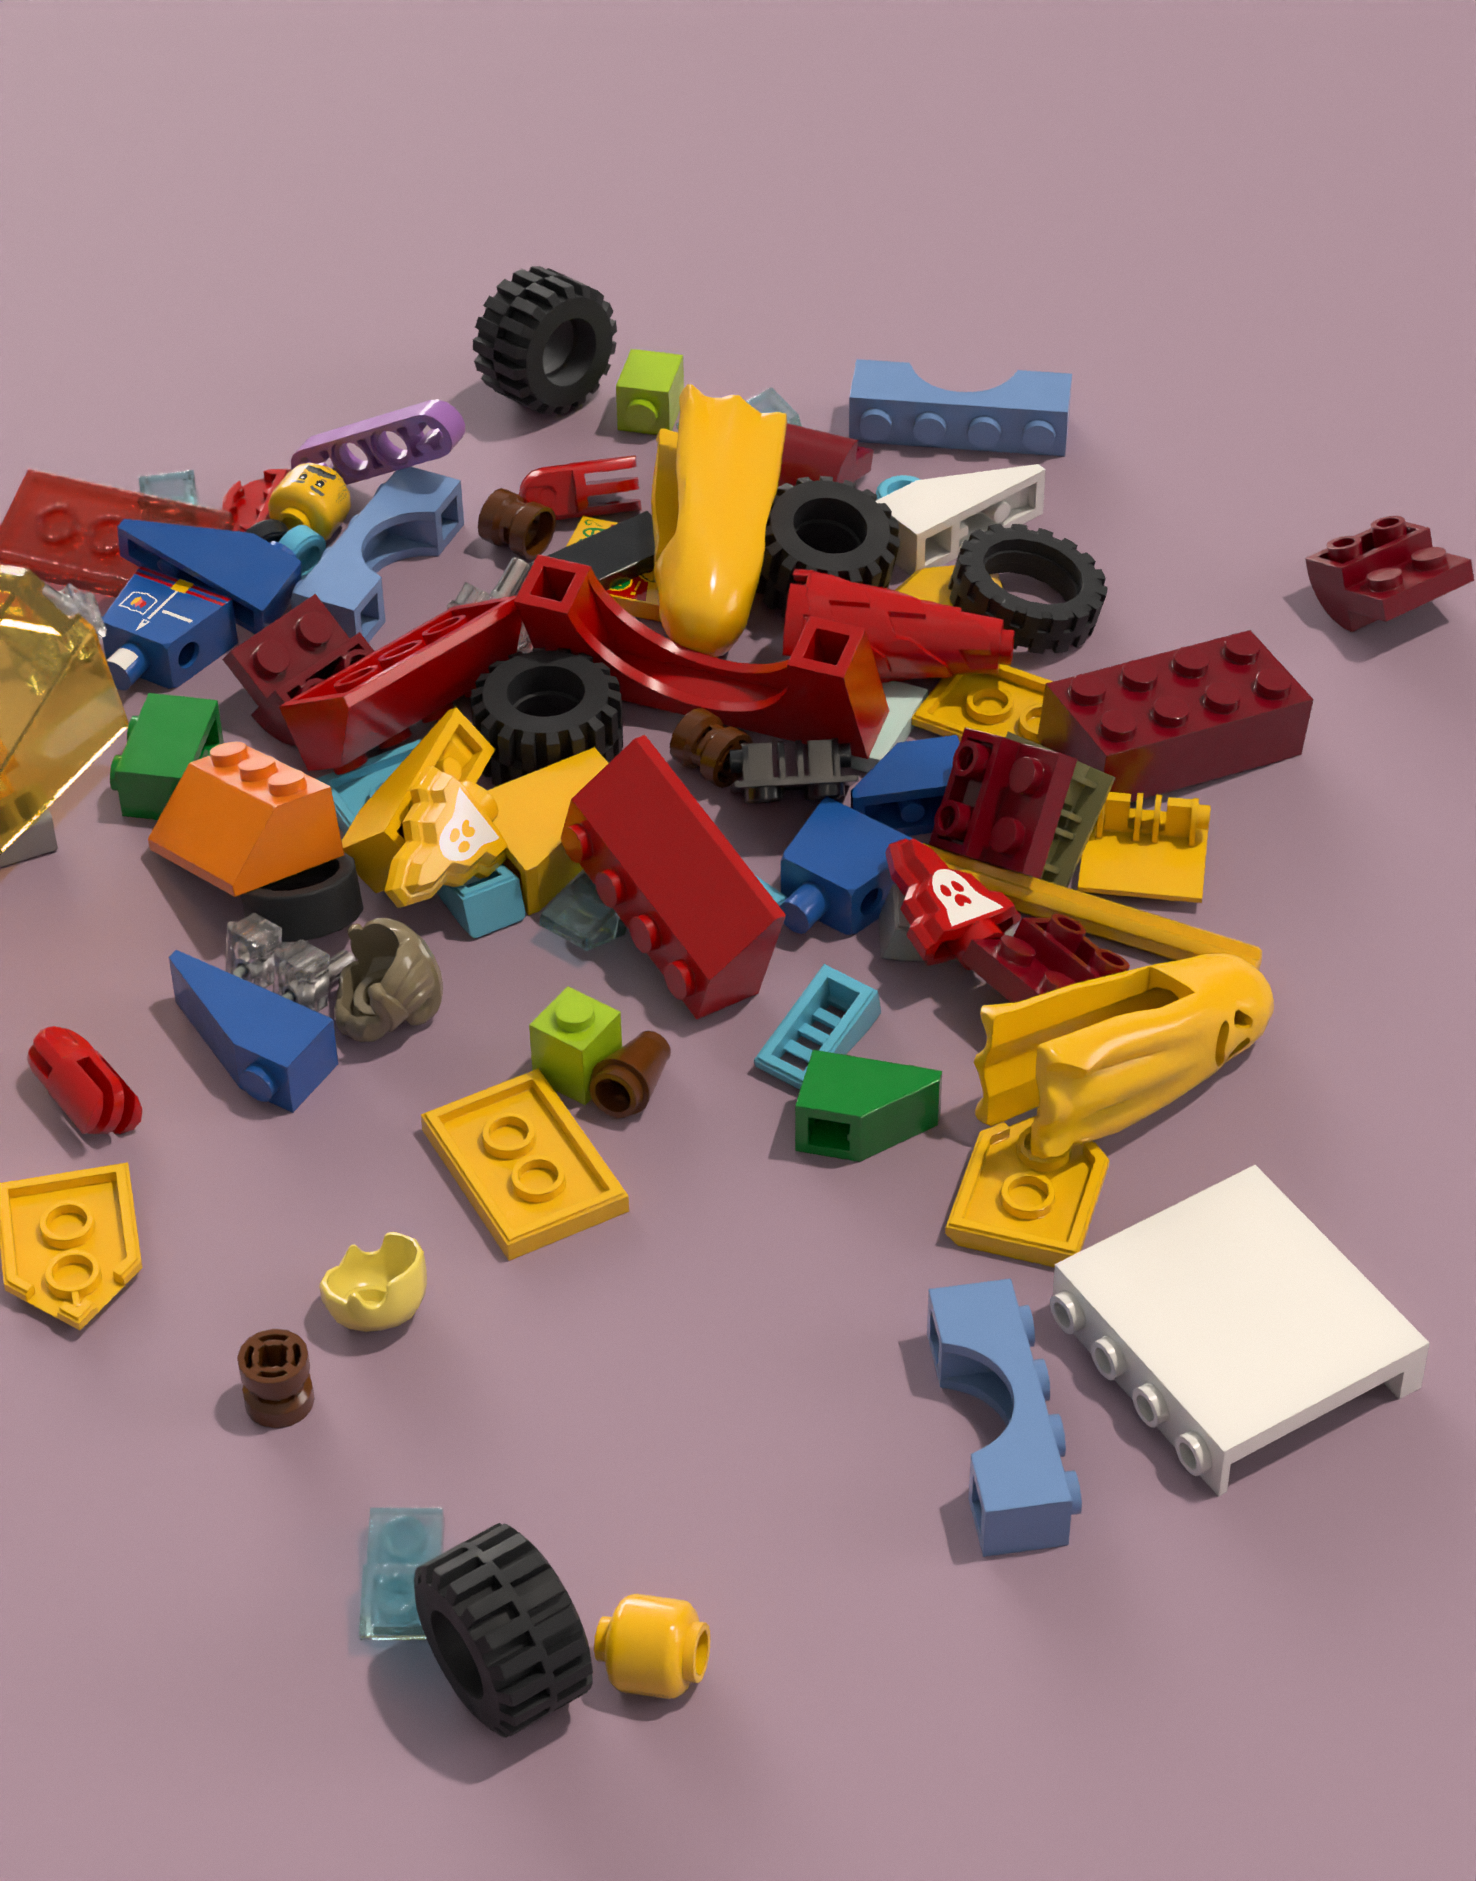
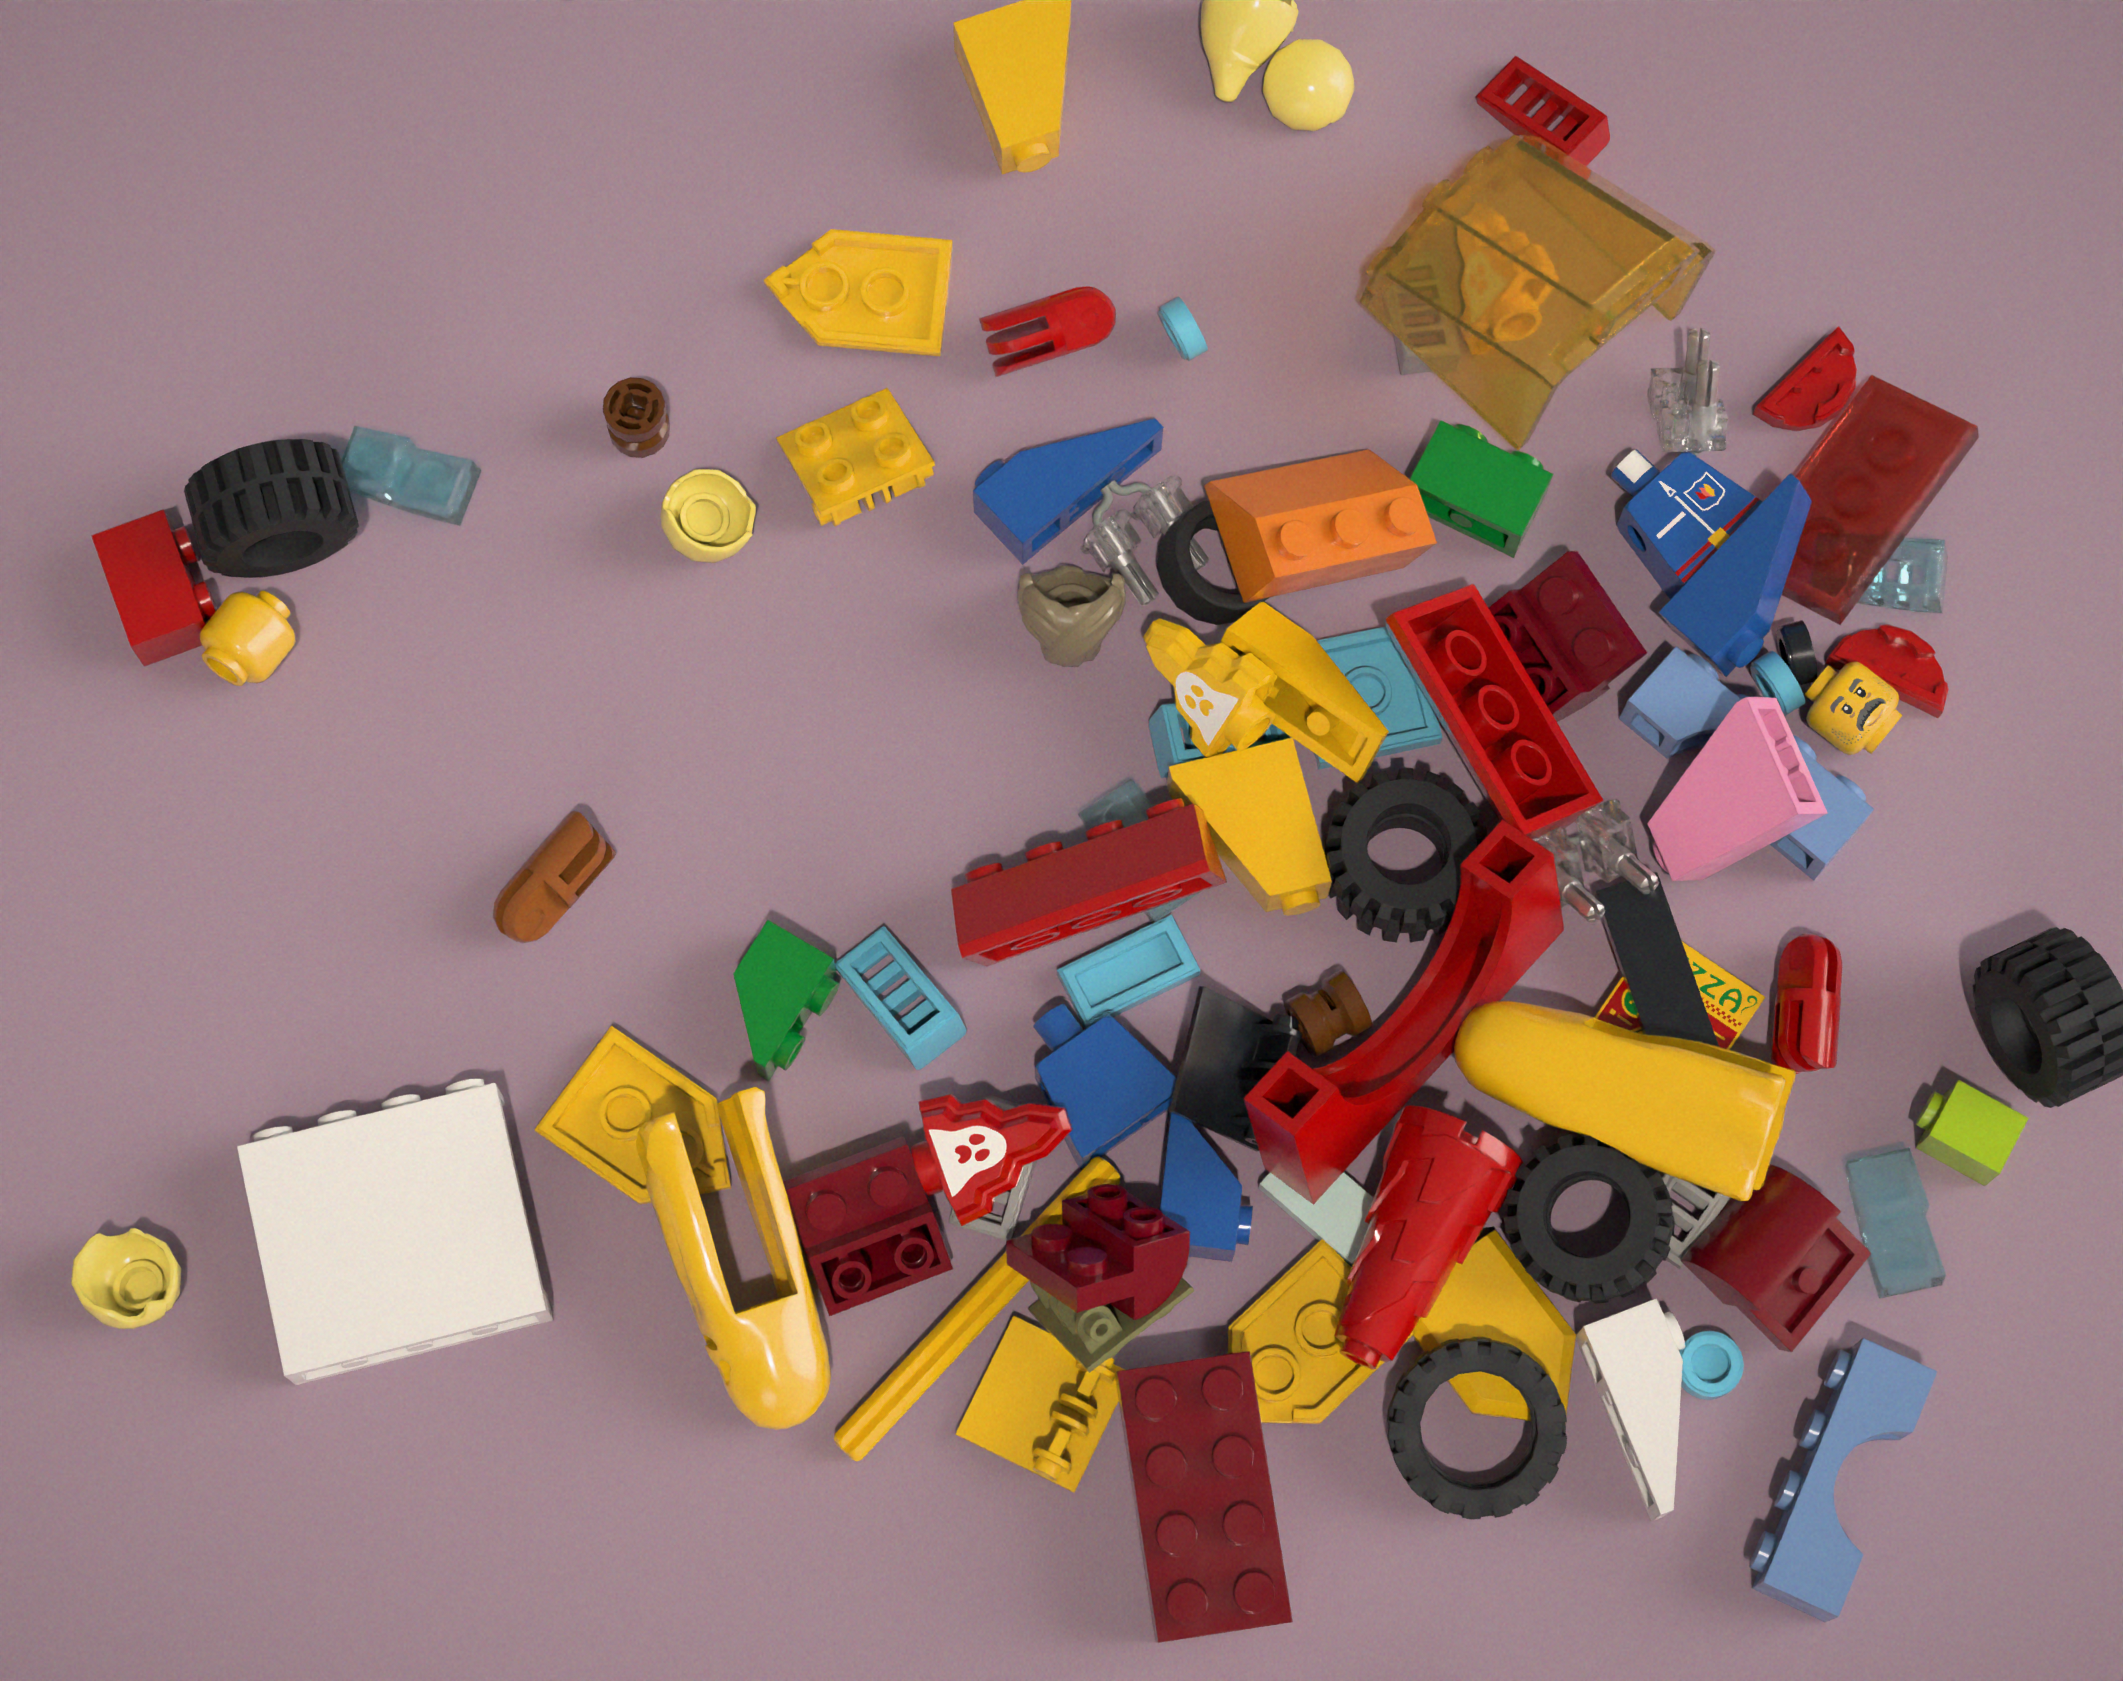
camera: 105 degrees right, 30 degrees up
(55, 985) = (1182, 329): none -> medium azure tile
(265, 1194) = (855, 455): none -> yellow hinge
(380, 451) = (1896, 784): medium lavender beam -> none
(424, 526) = (1735, 794): none -> bright pink slope
(521, 525) = (1766, 917): reddish brown wheel -> none
(524, 1164) = (831, 689): yellow tile -> none
(572, 1039) = (937, 760): lime brick -> none
(623, 1759) = (154, 586): none -> red brick
(628, 1076) = (896, 806): reddish brown cone -> none
(805, 1304) = (551, 879): none -> dark orange arm
(1018, 1481) = (455, 1005): medium blue arch -> none
(1403, 1525) = (126, 1278): none -> light yellow hair

